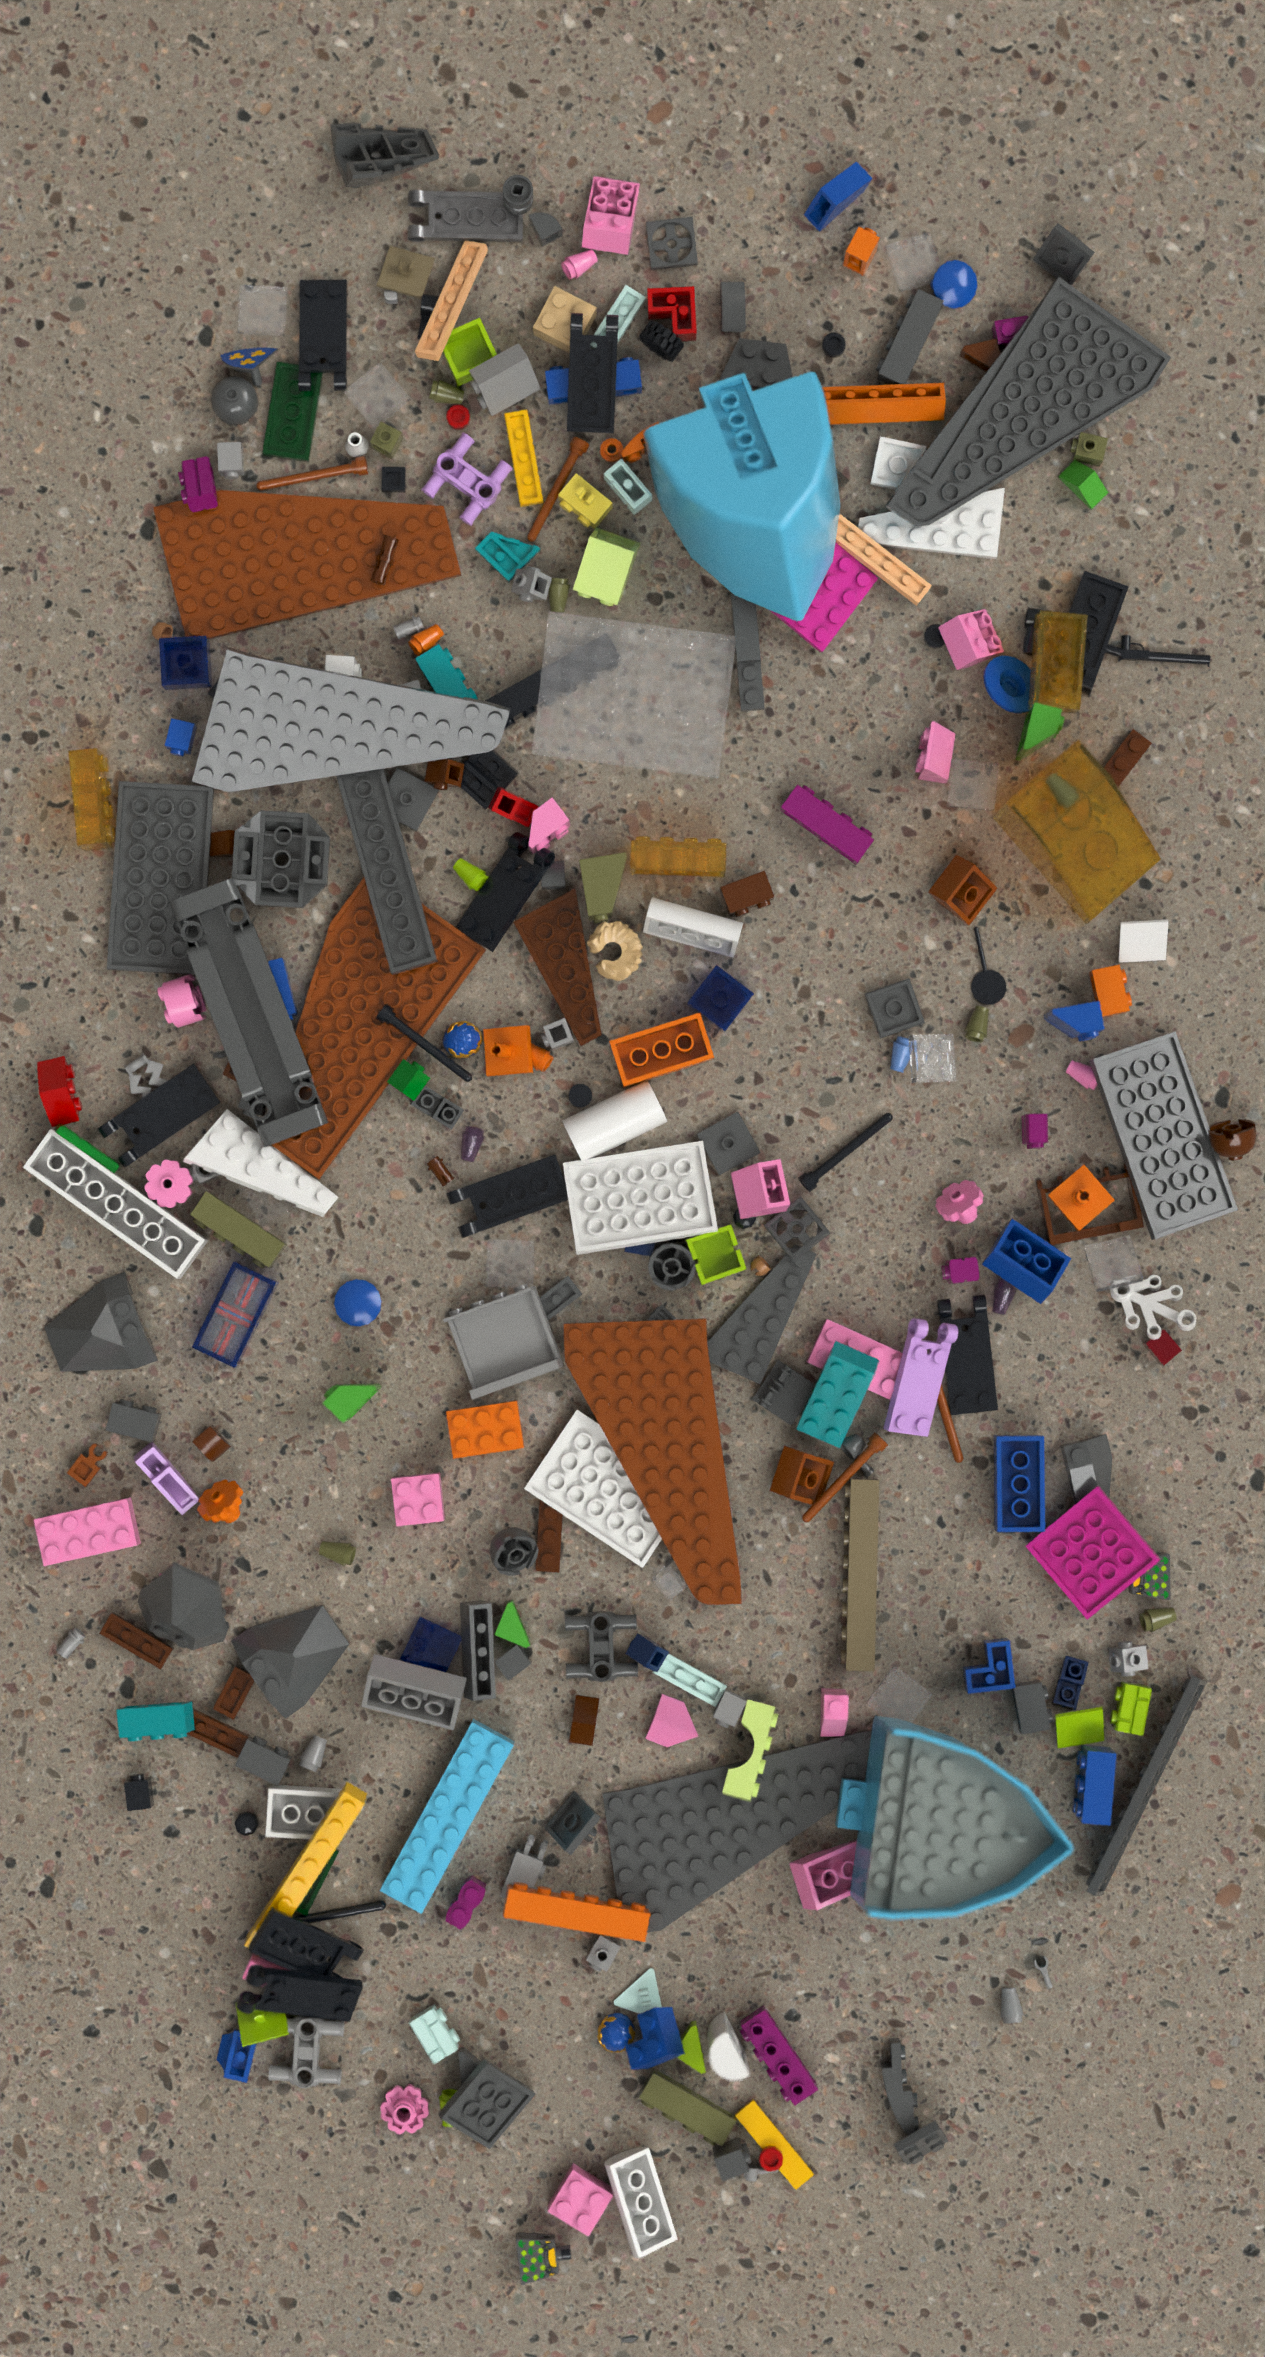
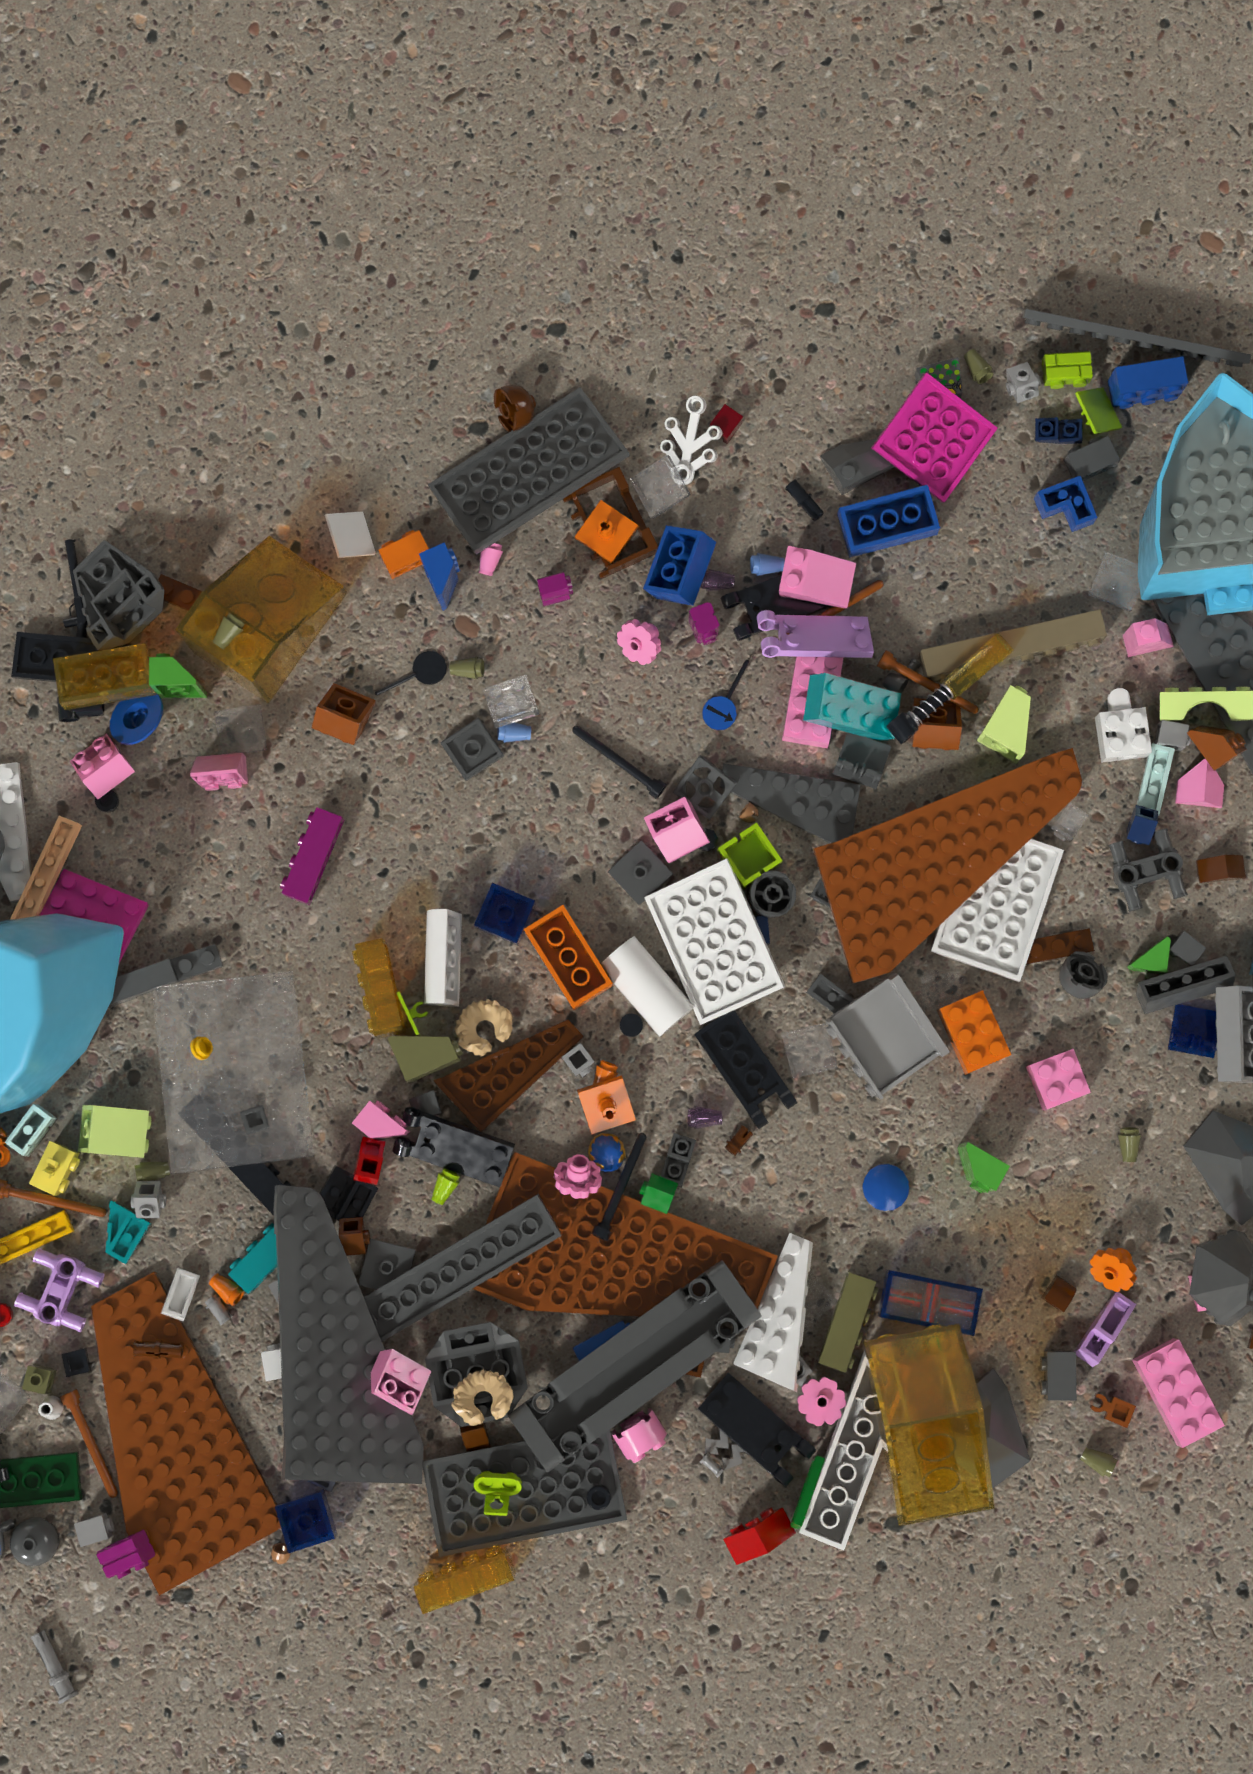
camera: 100 degrees left, 5 degrees down
(42, 1437) = (1099, 1461): none -> olive cone
(101, 394) = (58, 1676): none -> light grey pin
(119, 1277) = (930, 1424): none -> clear yellow slope
(134, 947) = (598, 1497): none -> black tile
(169, 852) = (497, 1486): none -> lime bracket
(180, 737) = (380, 1506): blue brick -> none
(271, 853) = (478, 1382): none -> tan piece
(293, 782) = (398, 1380): none -> bright pink slope
(432, 594) = (180, 1294): none -> white tile
(444, 1004) = (577, 1177): none -> bright pink plant
(580, 704) = (254, 1119): none -> dark grey tile
(645, 882) = (412, 1013): none -> lime piece
(663, 669) = (201, 1047): none -> yellow plate
(708, 1748) = (1217, 744): none -> dark orange slope
(747, 893) = (397, 915): reddish brown brick -> none
(748, 1662) = (1125, 729): none -> white brick
(781, 1546) = (1008, 725): none -> yellowish green slope
(832, 1499) = (952, 686): none -> piece
(870, 1264) = (719, 711): none -> blue piece
(978, 1395) = (816, 577): none -> bright pink slope
(1007, 1349) = (765, 564): none -> medium blue cone
(1063, 1406) = (804, 500): none -> black axle
(1137, 692) = (116, 596): none -> dark grey wedge

